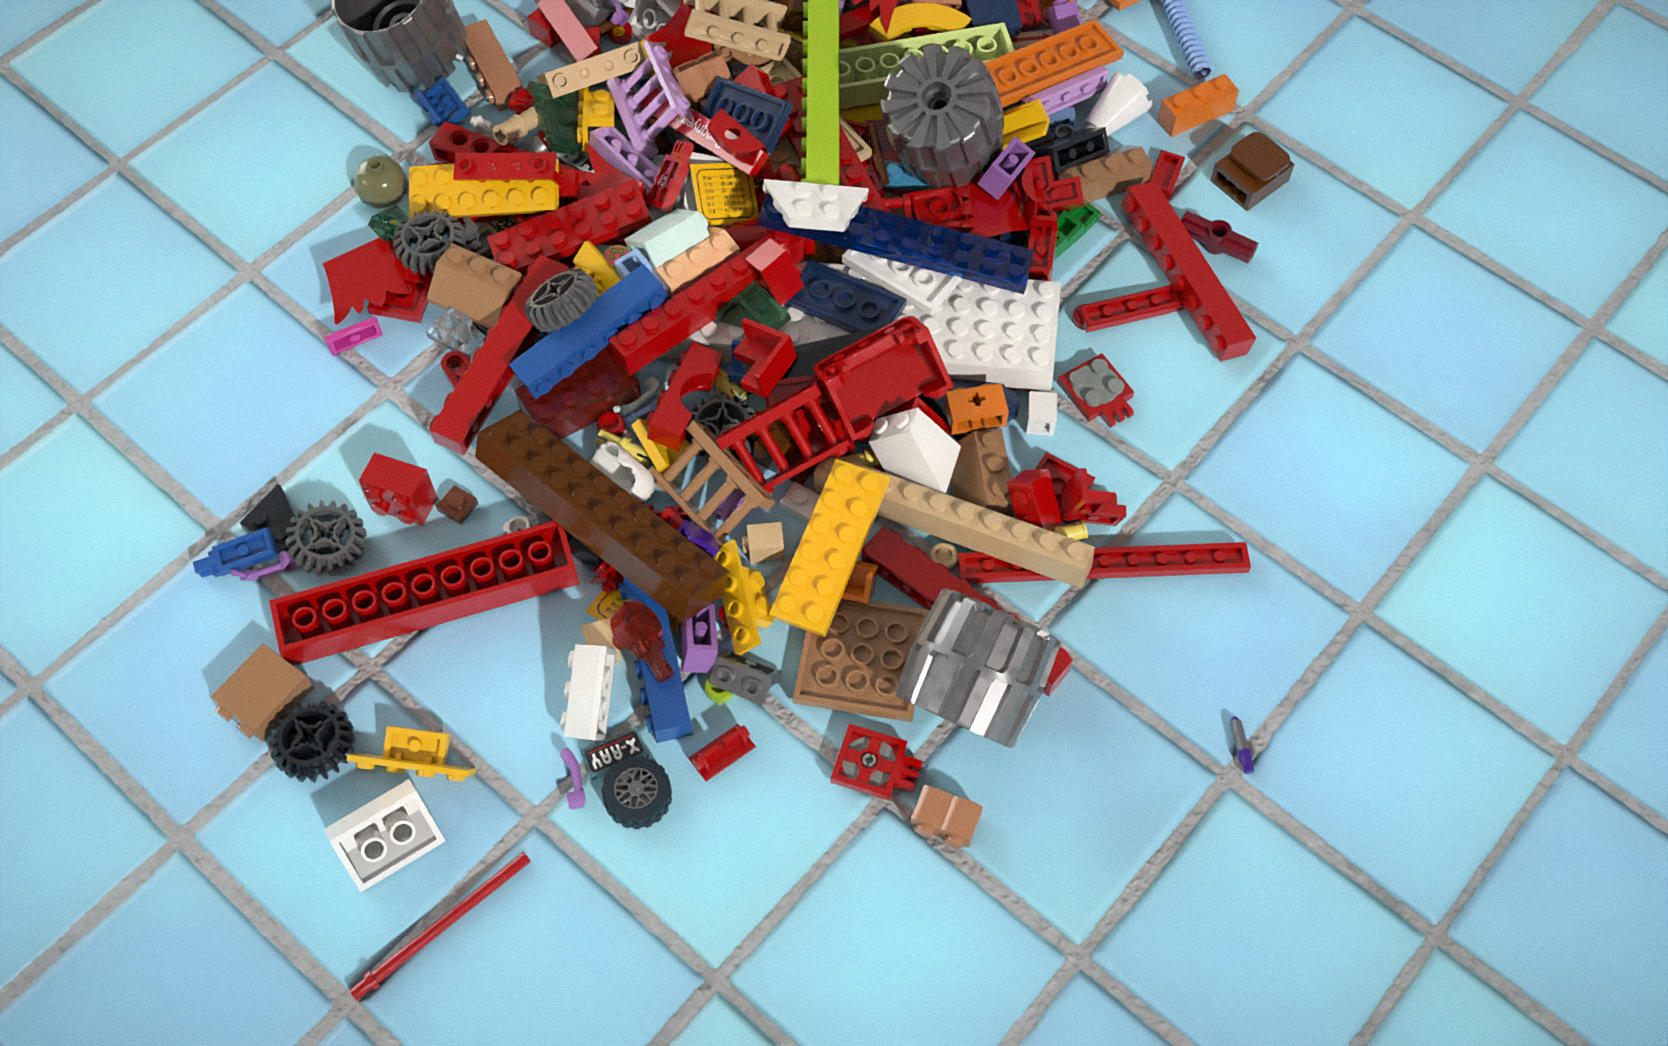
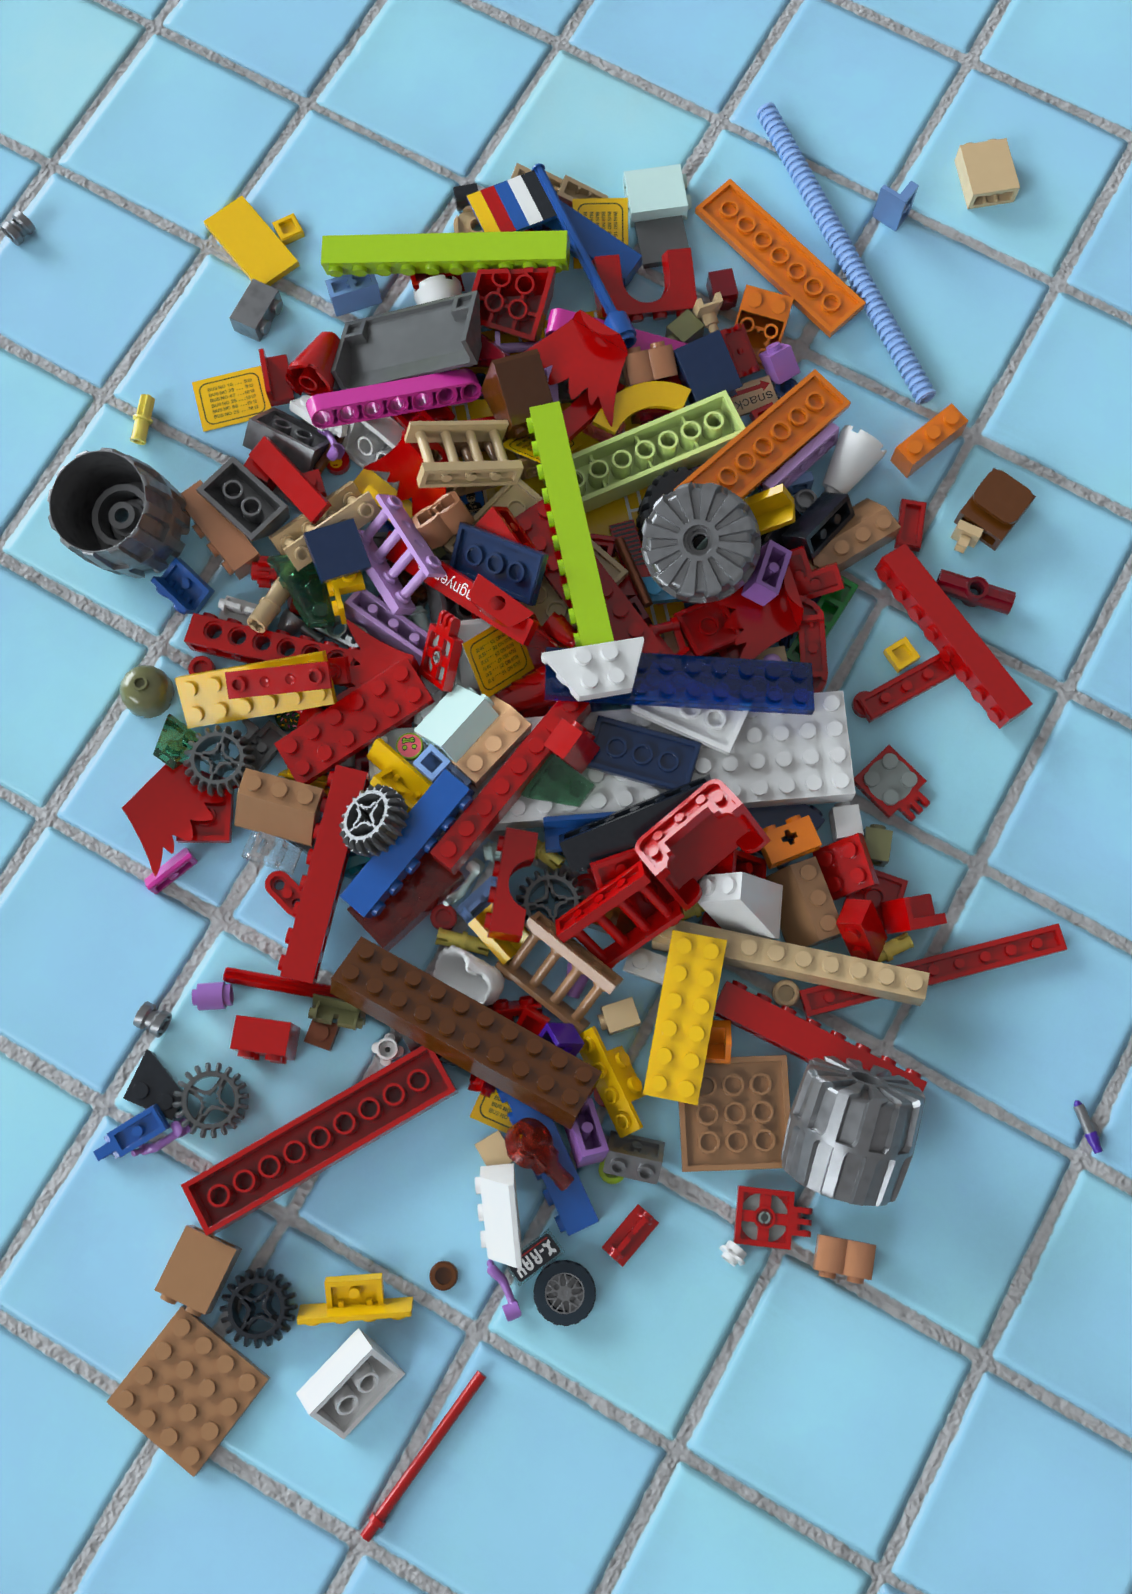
camera: 10 degrees left, 15 degrees up
(213, 810) = (188, 1390): none -> medium nougat plate
(295, 460) = (152, 1019): none -> flat silver wheel
(357, 447) = (212, 996): none -> medium lavender brick
(436, 455) = (275, 983): none -> red axle
(479, 483) = (327, 1008): none -> olive hinge
(514, 753) = (443, 1275): none -> reddish brown tile
(522, 40) = (244, 500): none -> flat silver slope
(595, 83) = (337, 550): none -> dark blue tile
(768, 353) = (590, 842): red panel -> none
(827, 789) = (733, 1253): none -> white plate
(1033, 445) = (846, 866): none -> red plate
(1067, 438) = (878, 843): none -> olive brick
(1132, 278) = (901, 654): none -> yellow plate
(1219, 189) = (966, 535): none -> tan tile

